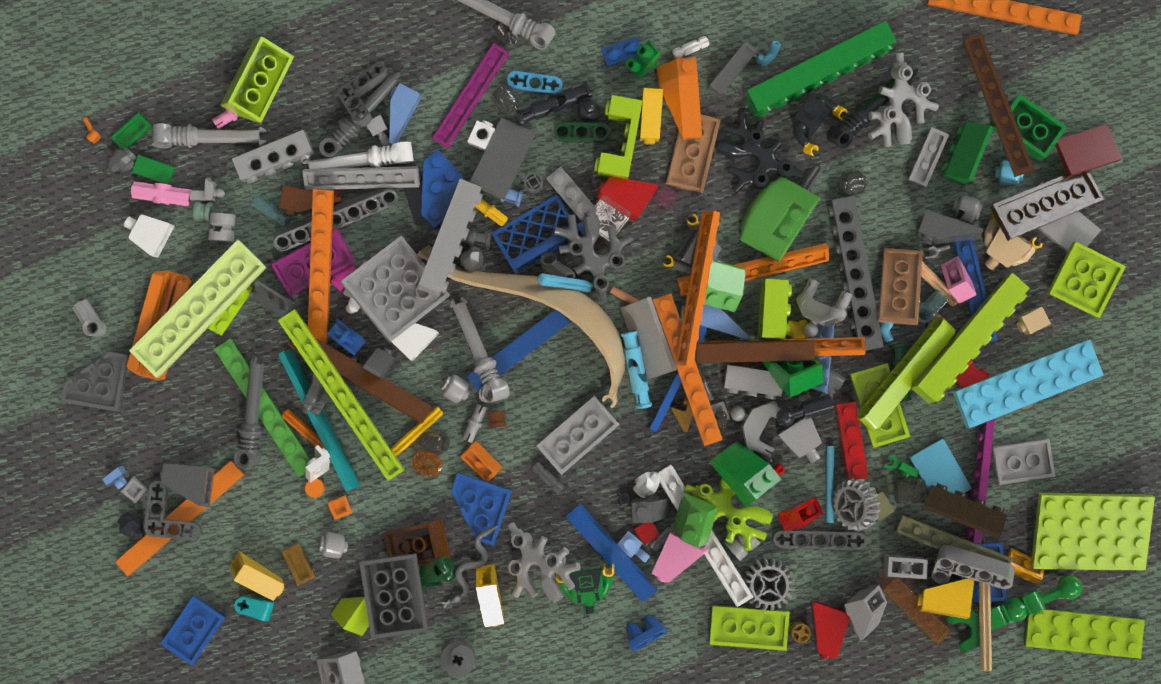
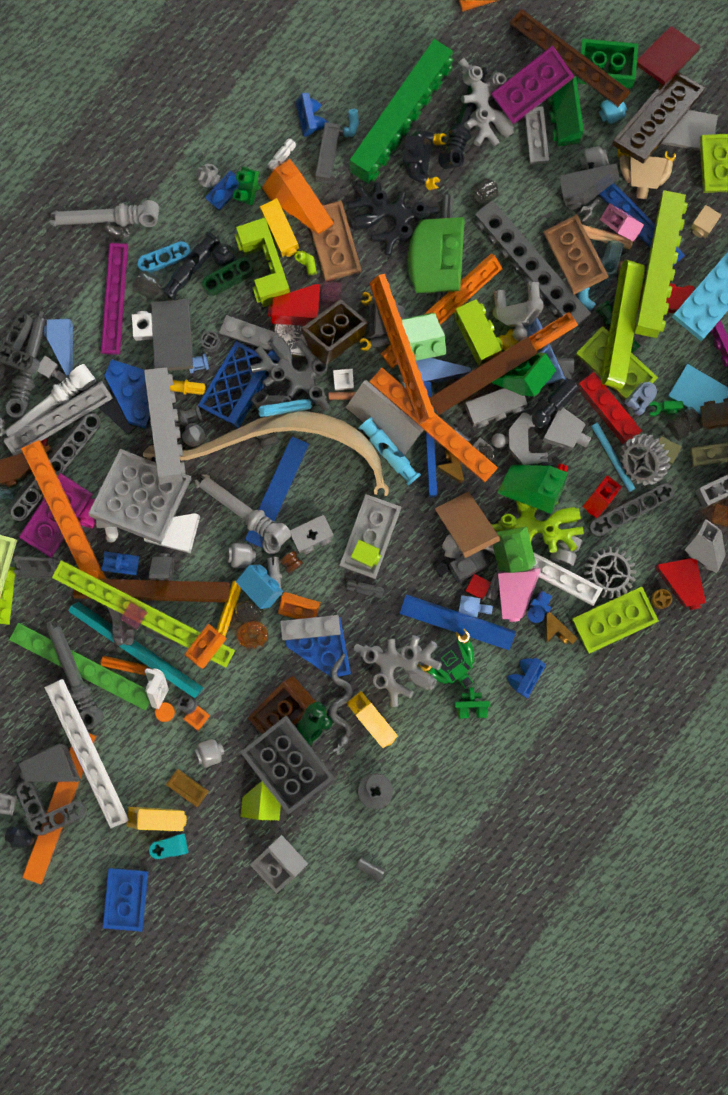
camera: 25 degrees left, 5 degrees down
(227, 487) = (86, 753): none -> white tile
(331, 393) = (134, 615): none -> clear pink tile
(334, 488) = (192, 704): none -> dark grey bush
(379, 453) = (205, 646): none -> orange slope
(456, 425) = (259, 586): none -> dark azure brick
(480, 486) = (310, 627): none -> light grey plate
(538, 401) = (317, 525): none -> light grey brick
(564, 450) = (366, 554): none -> lime brick
(589, 636) = (463, 707): none -> green hips
(614, 30) = (208, 175): none -> light grey gear
(632, 282) = (343, 379): none -> white plate
(646, 236) = (334, 331): none -> dark brown slope
(660, 157) = (307, 260): none -> lime arm
(667, 475) = (467, 524): none -> medium nougat tile
(688, 581) = (539, 607): none -> blue hips
(691, 604) = (554, 626): none -> pearl gold slope
(736, 16) = (309, 122): none -> blue tile
(891, 445) = (646, 393): none -> sand blue plate
(950, 112) = (533, 85): none -> magenta tile

